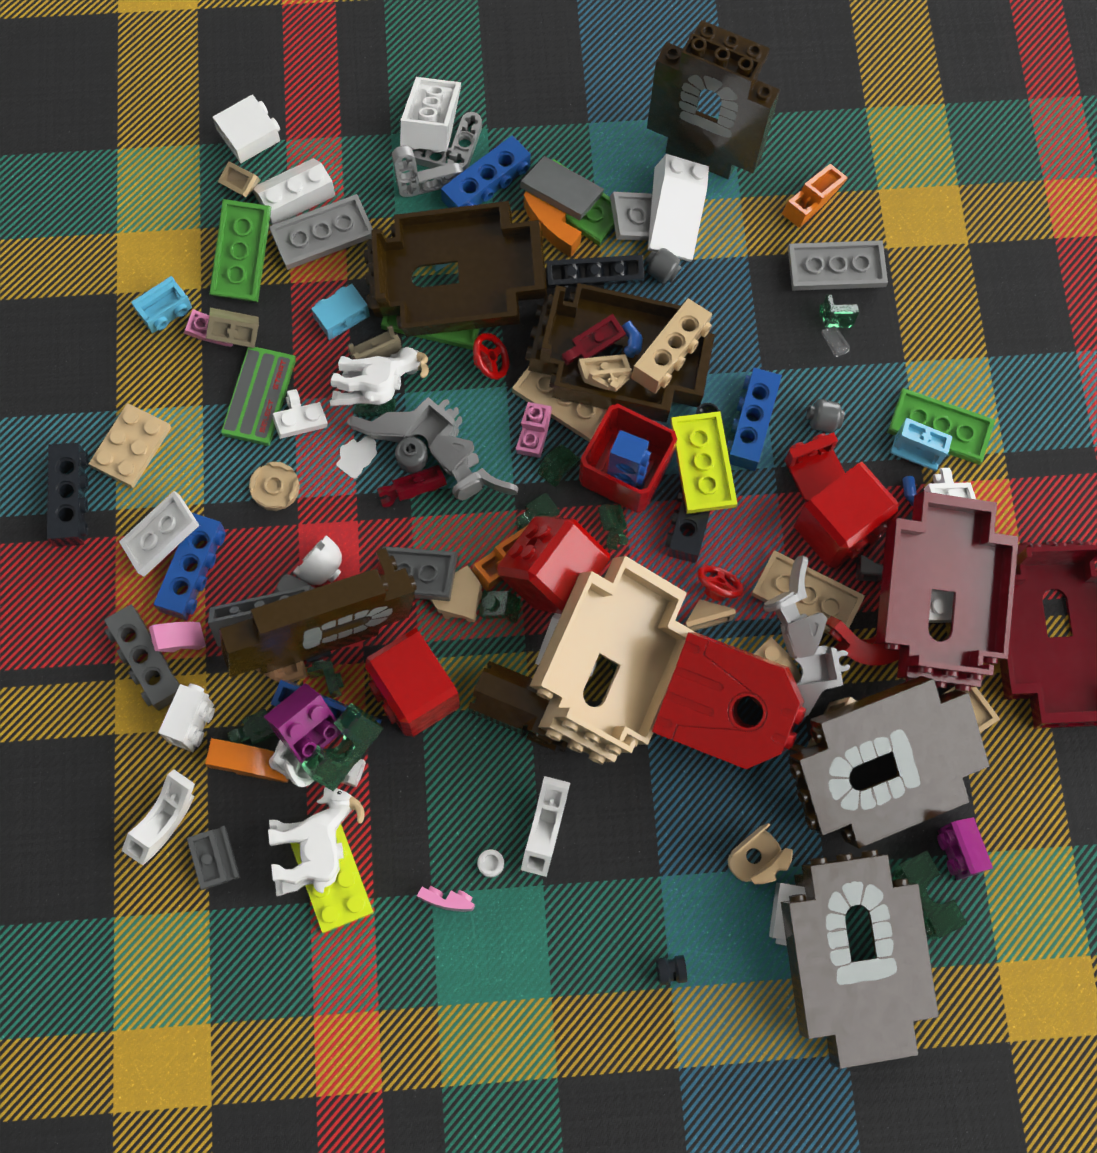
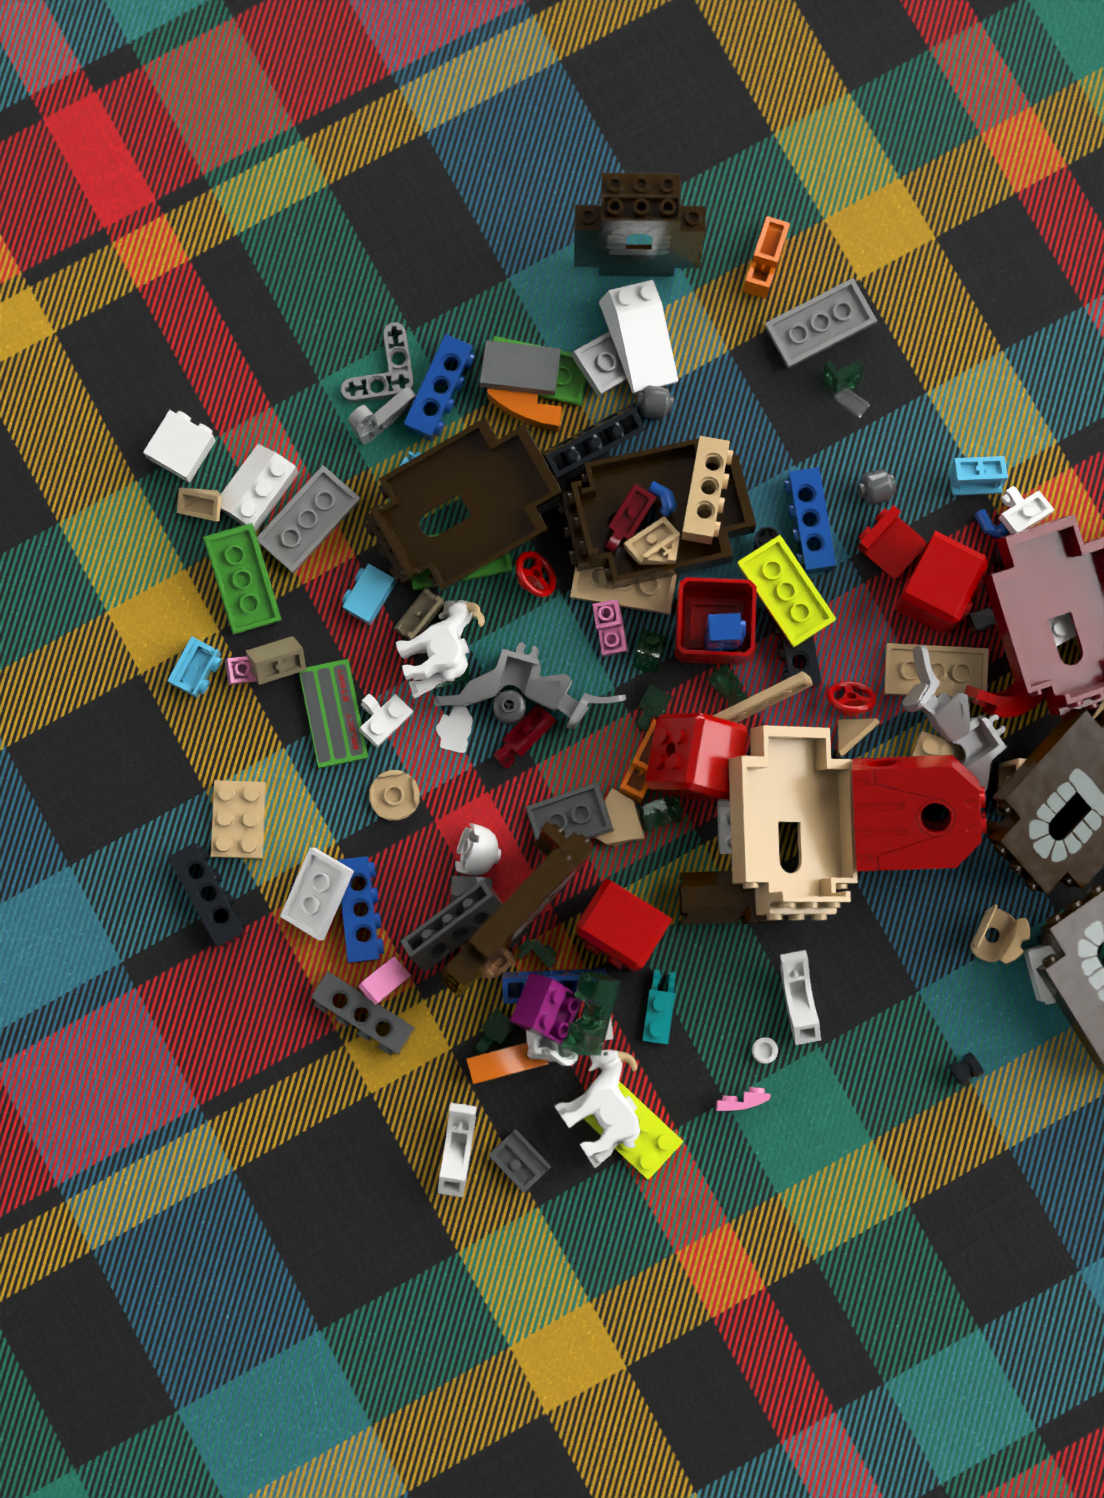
camera: 20 degrees left, 10 degrees up
(187, 717) = (434, 1049): white brick -> none
(412, 780) = (659, 1010): none -> teal hinge
(430, 114) = (352, 345): white slope -> none
(646, 545) = (766, 698): none -> tan tile
(968, 429) = (1006, 436): bright green tile -> none

